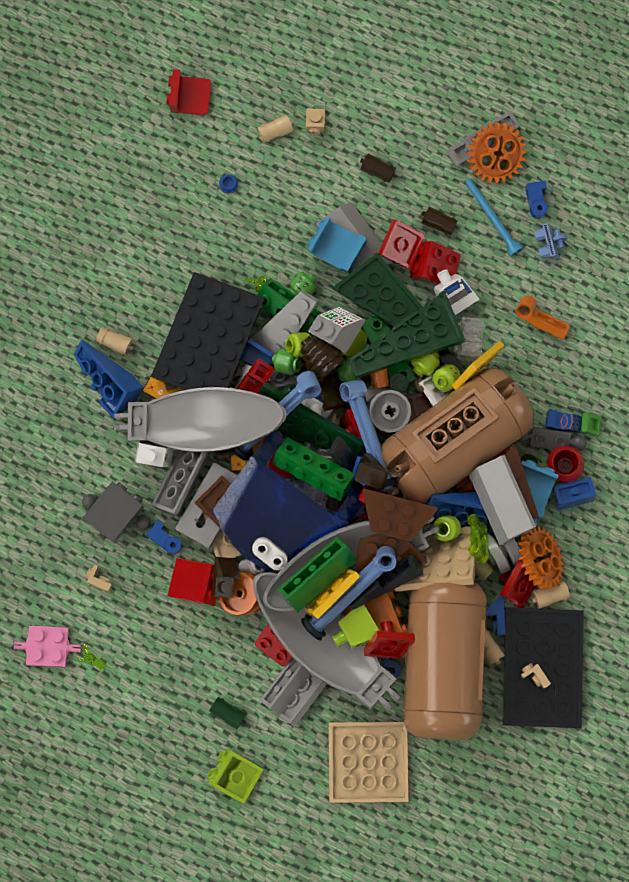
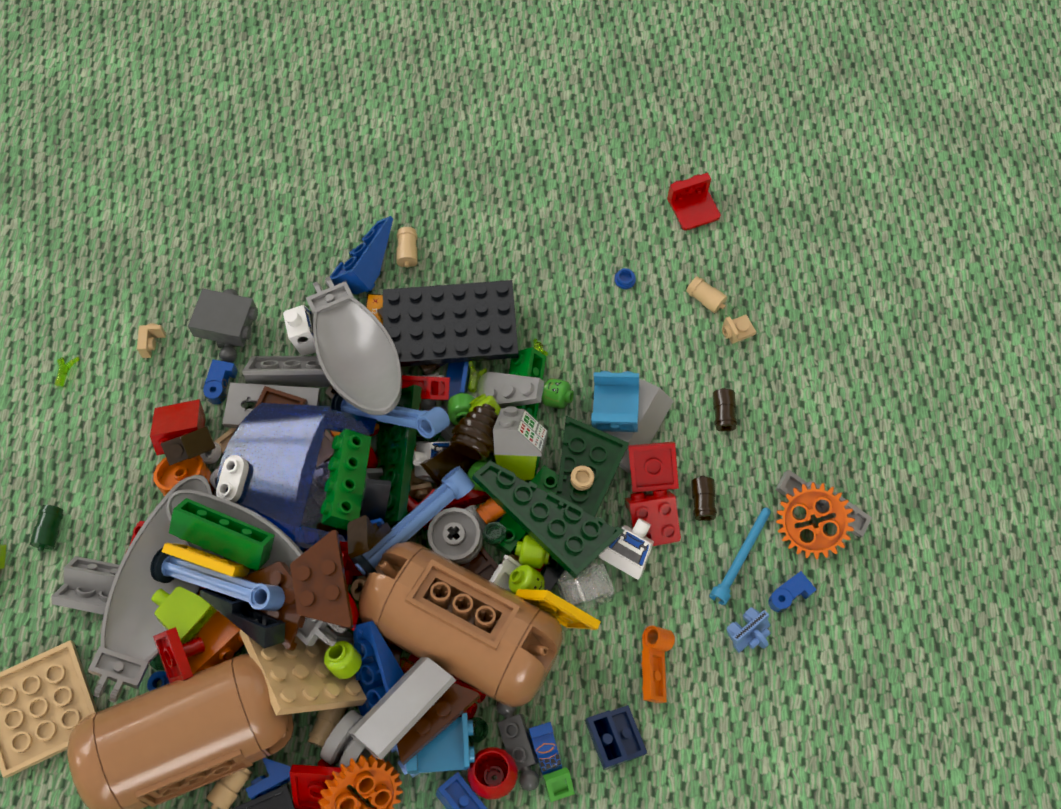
camera: 65 degrees right, 15 degrees down
(47, 646) = (61, 325): bright pink plate -> none
(263, 340) = (474, 377): none -> clear neon green bar
(389, 299) = (582, 478): none -> tan tile
(478, 539) = (345, 703): clear neon green plate -> none
(579, 370) = (615, 737): none -> dark blue brick

